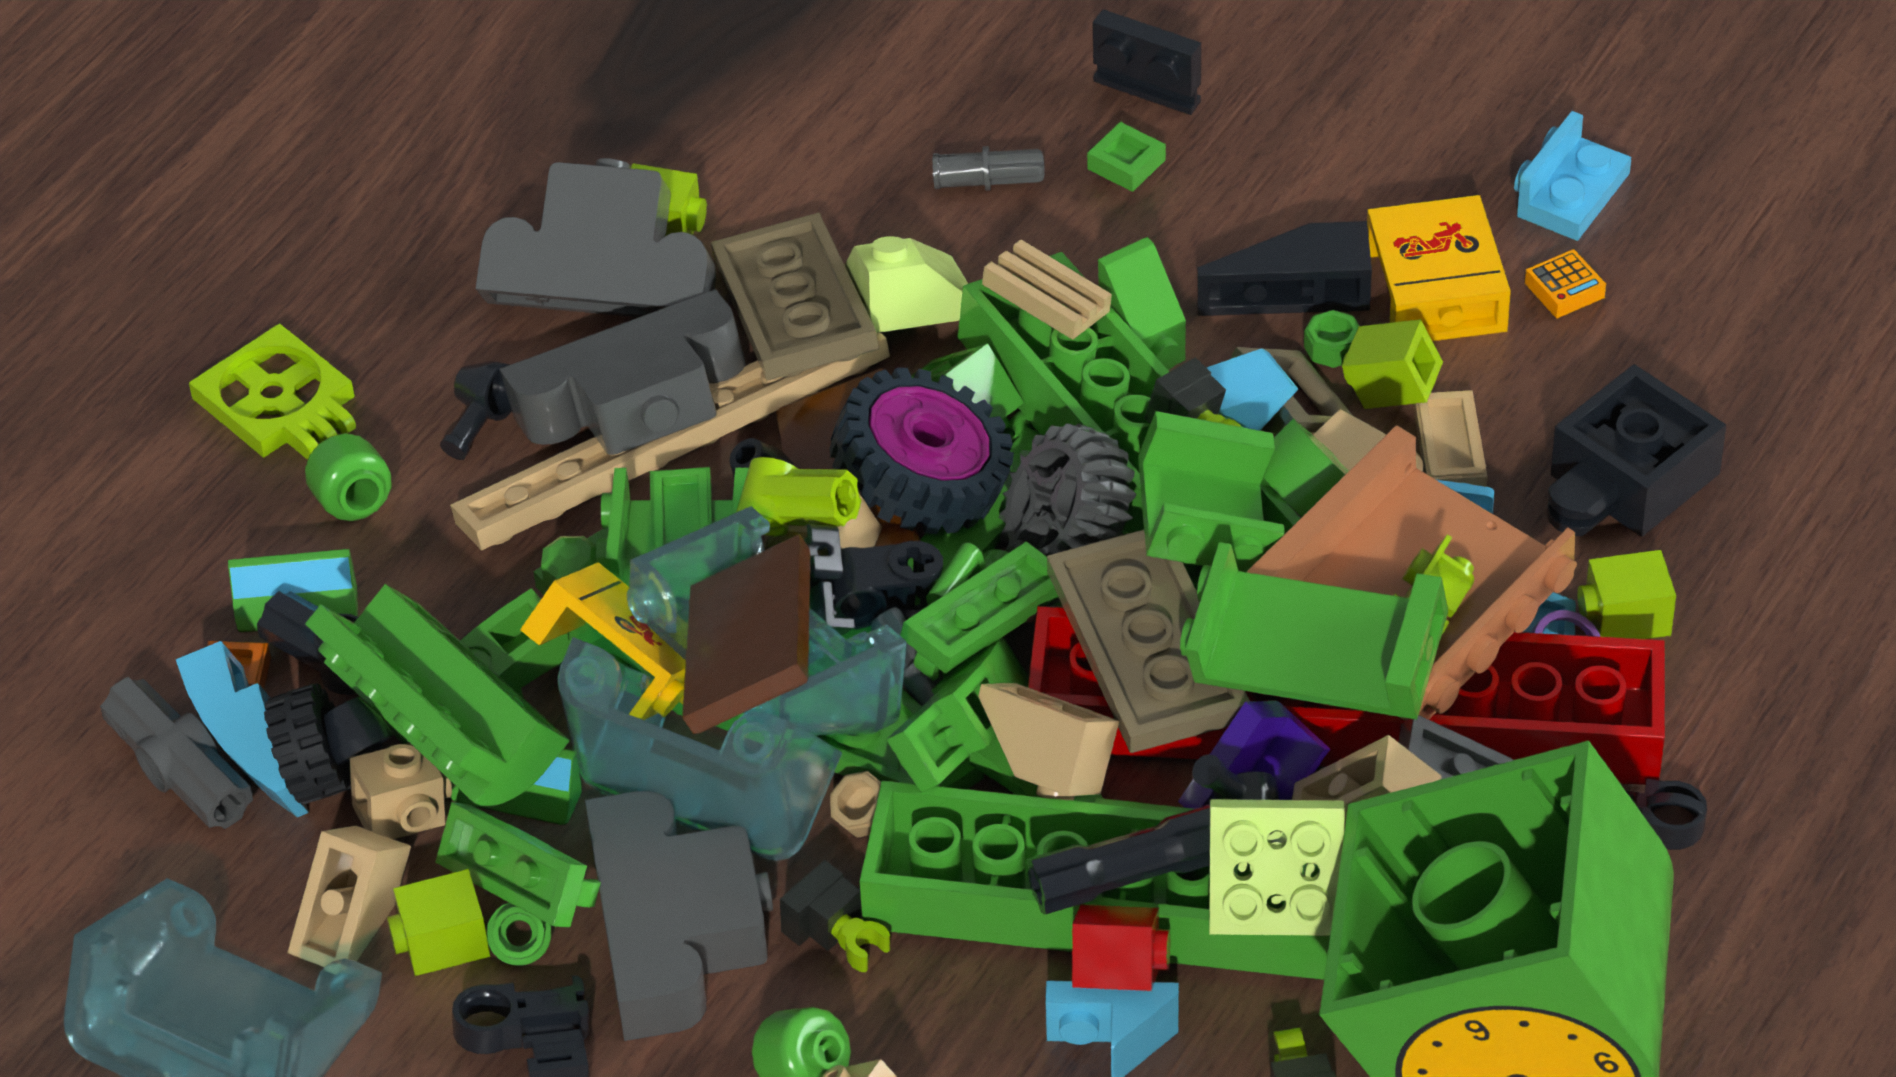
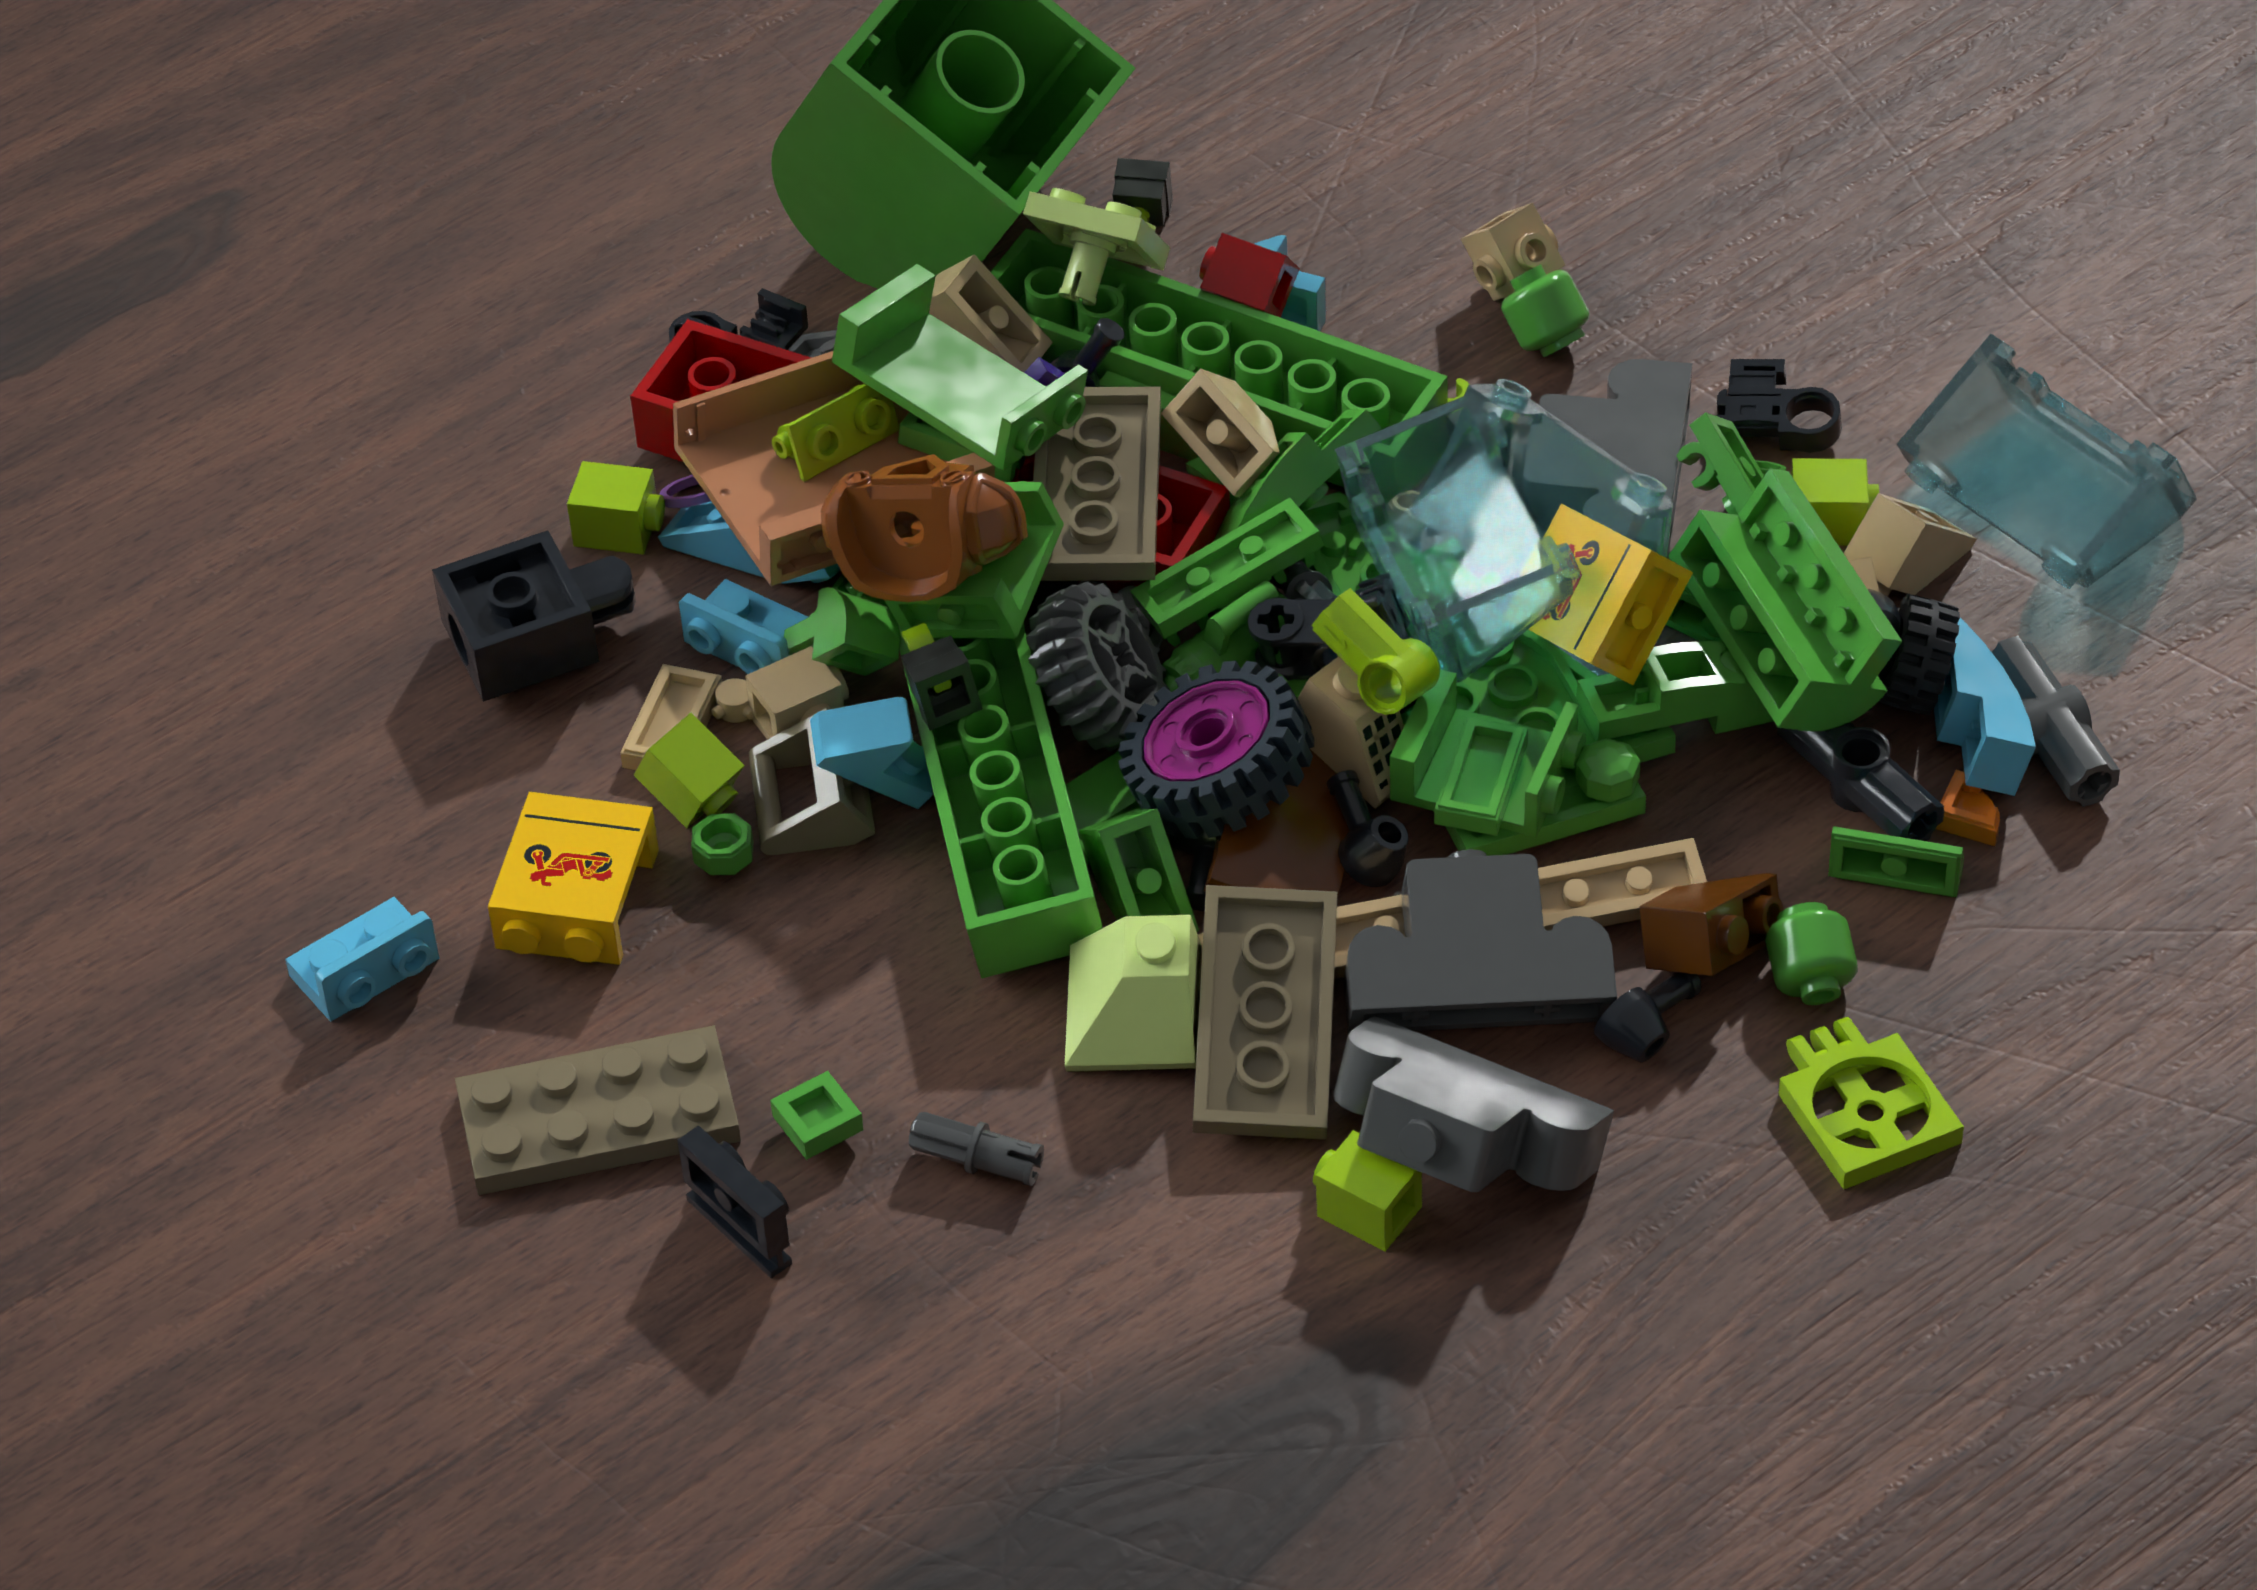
camera: 160 degrees left, 0 degrees up
(442, 462) = (1709, 923): none -> reddish brown slope
(747, 635) = (1479, 477): reddish brown tile -> none
(1052, 283) = (988, 830): tan tile -> none
(1083, 872) = (1165, 306): black axle -> none
(1145, 299) = (914, 893): bright green slope -> none
(1250, 441) = (960, 527): none -> dark orange piece
(1295, 272) = (718, 915): black slope -> none
(1306, 130) = (595, 1109): none -> dark tan plate
(1565, 283) = (449, 850): light orange tile -> none

